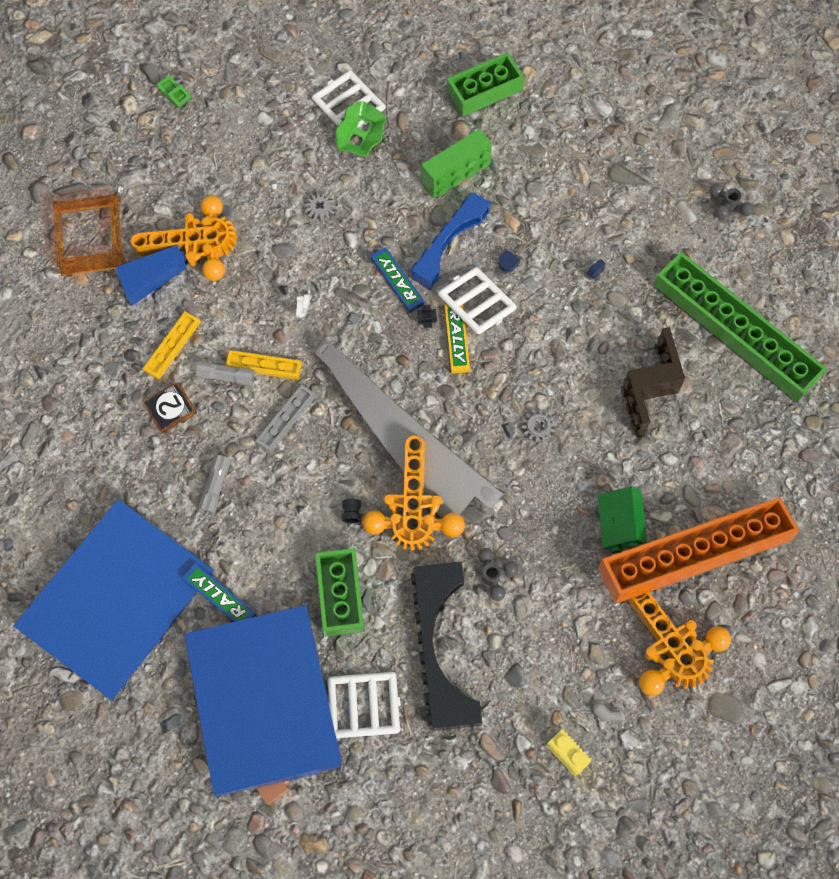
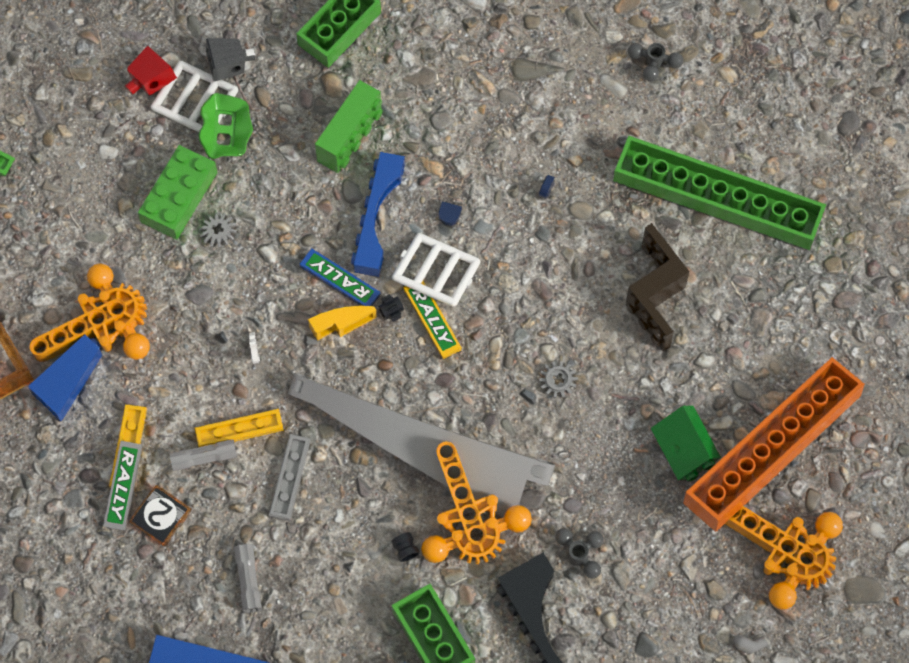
camera: 25 degrees left, 0 degrees up
(151, 372) = (123, 485): none -> tile
(301, 165) = (177, 192): none -> bright green brick
(321, 70) = (149, 73): none -> red torso
(383, 310) = (341, 320): none -> yellow slope
(386, 79) = (227, 57): none -> dark grey torso

